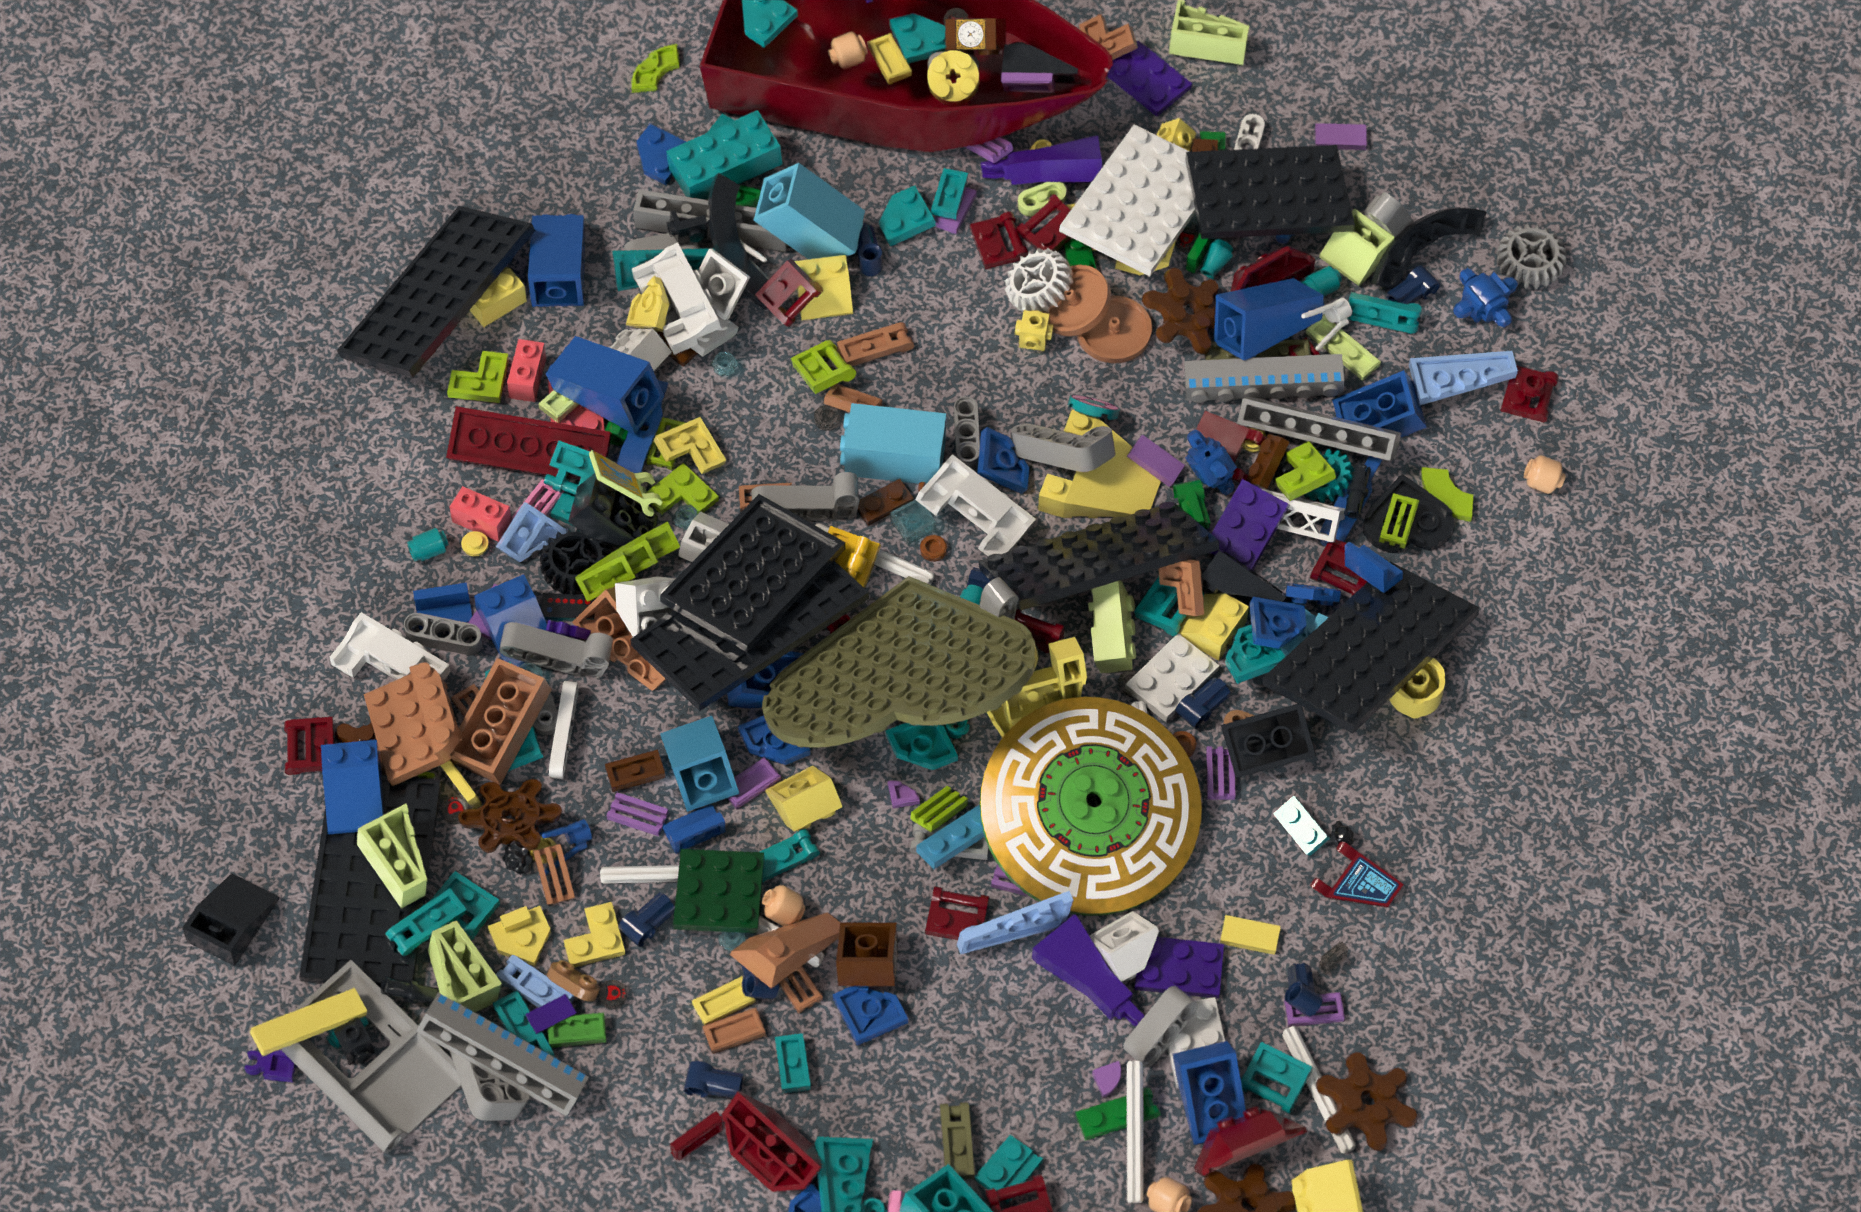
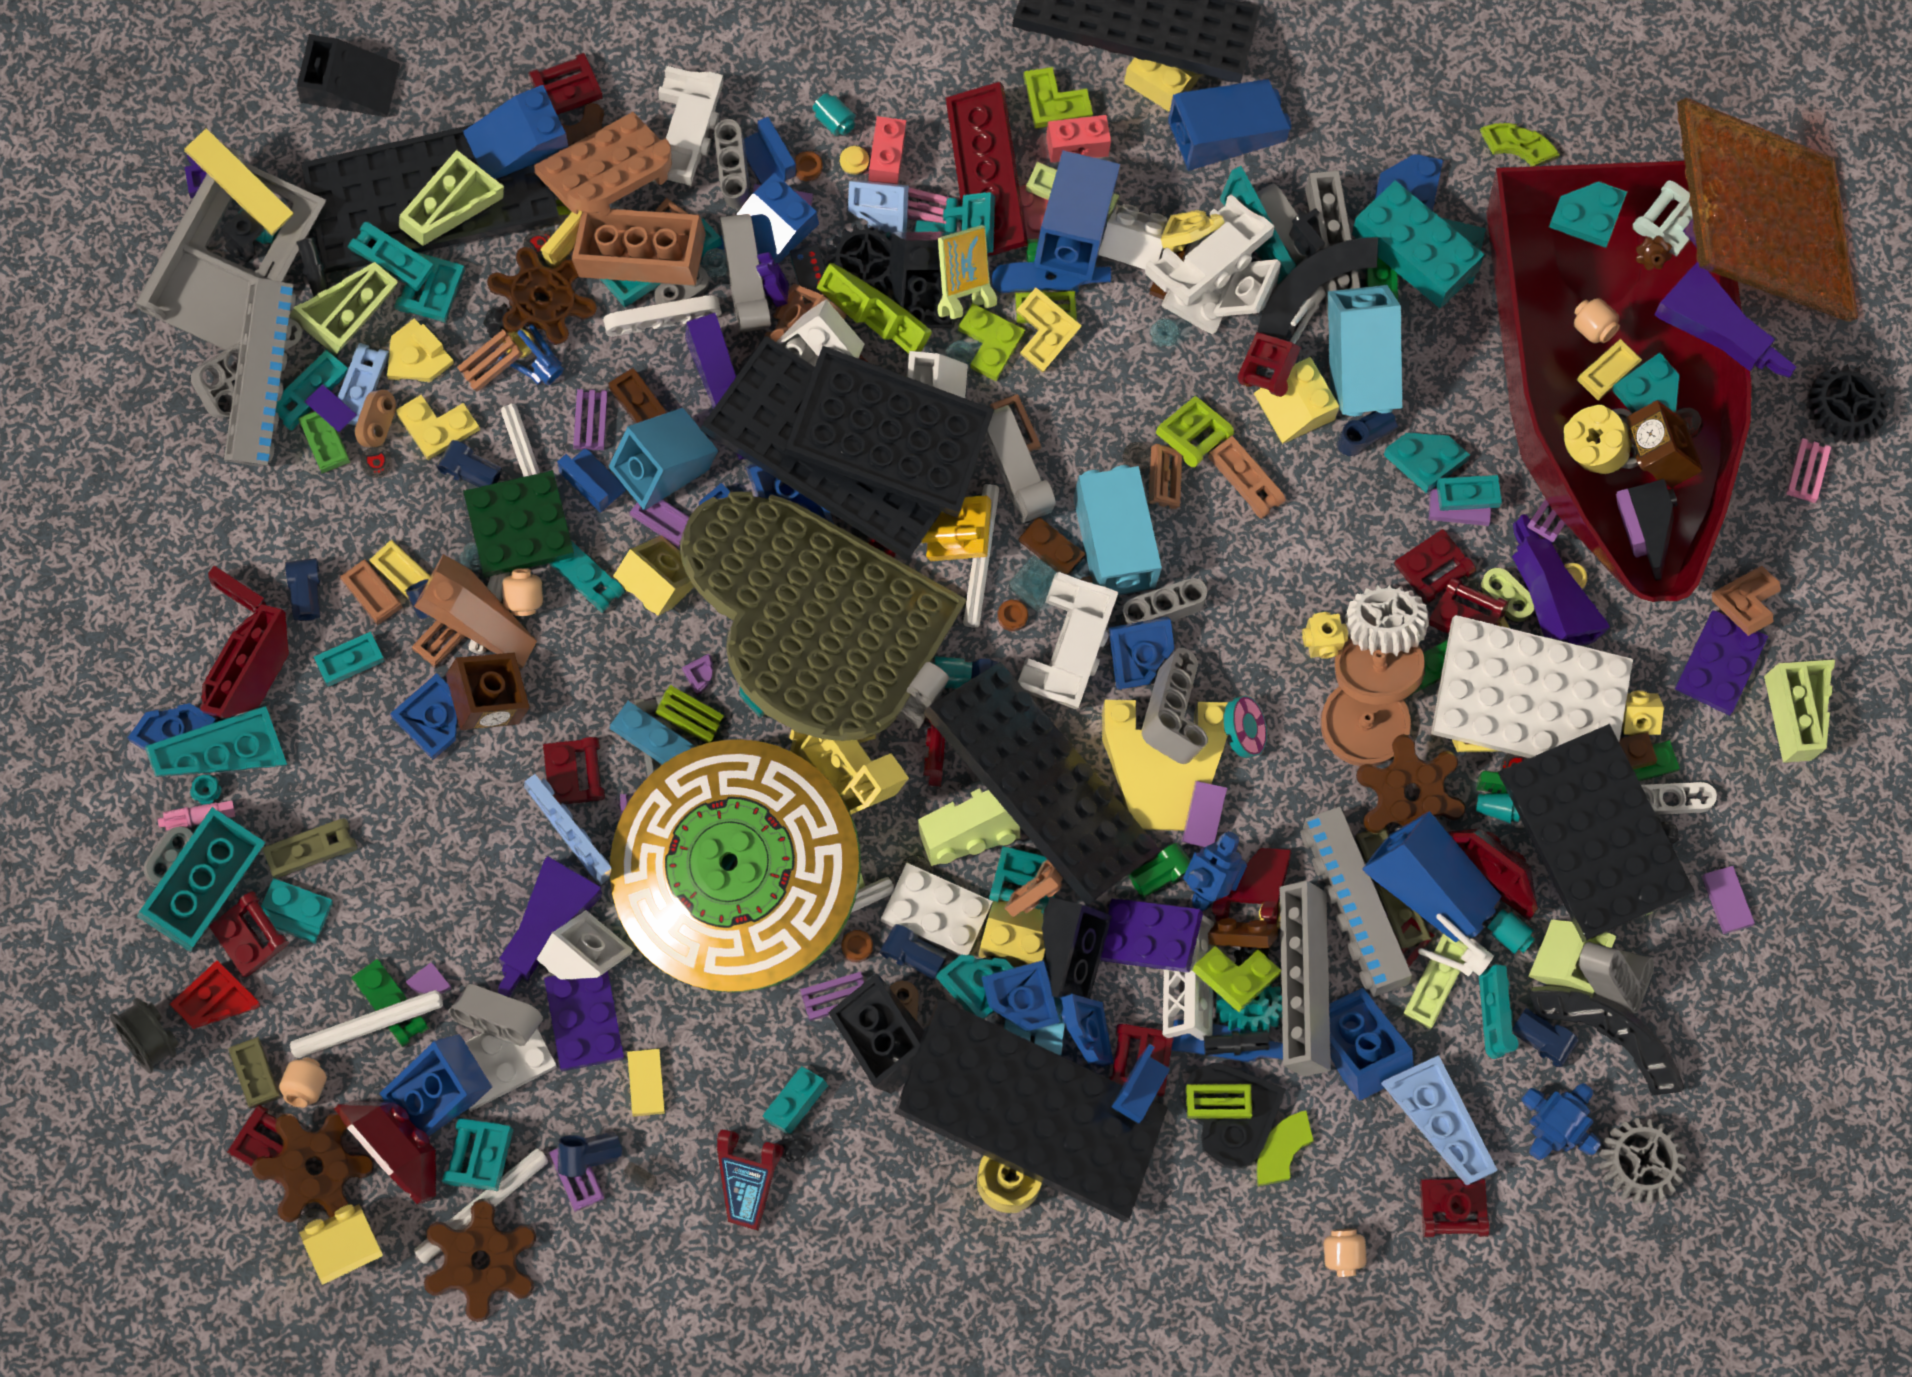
camera: 65 degrees right, 10 degrees up
(466, 575) = (808, 166): none -> dark orange tile
(630, 698) = (710, 356): none -> dark purple piece

